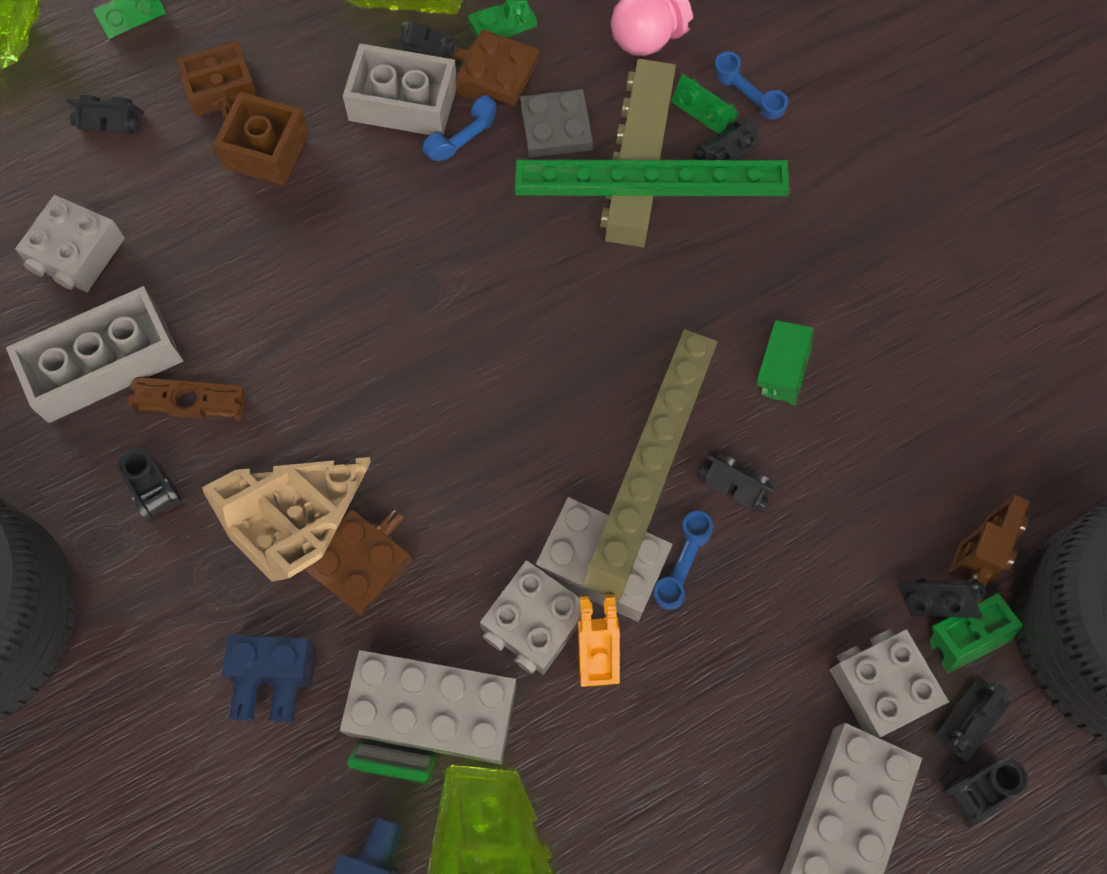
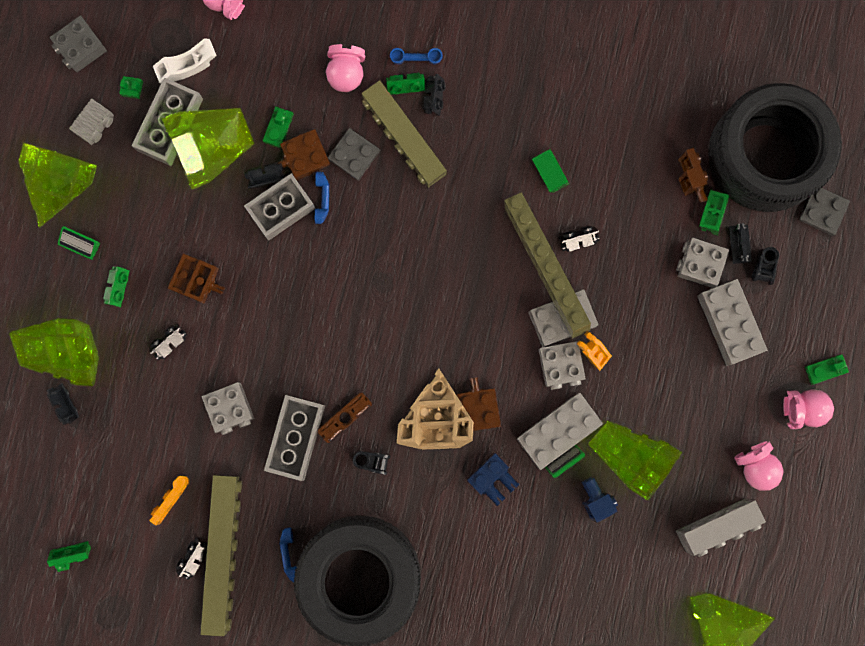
camera: 45 degrees left, 15 degrees up
(261, 138) = (249, 286): reddish brown brick -> none
(652, 177) = (426, 145): green tile -> none
(697, 531) = (583, 273): blue bar -> none
(943, 599) = (688, 214): black hinge -> none

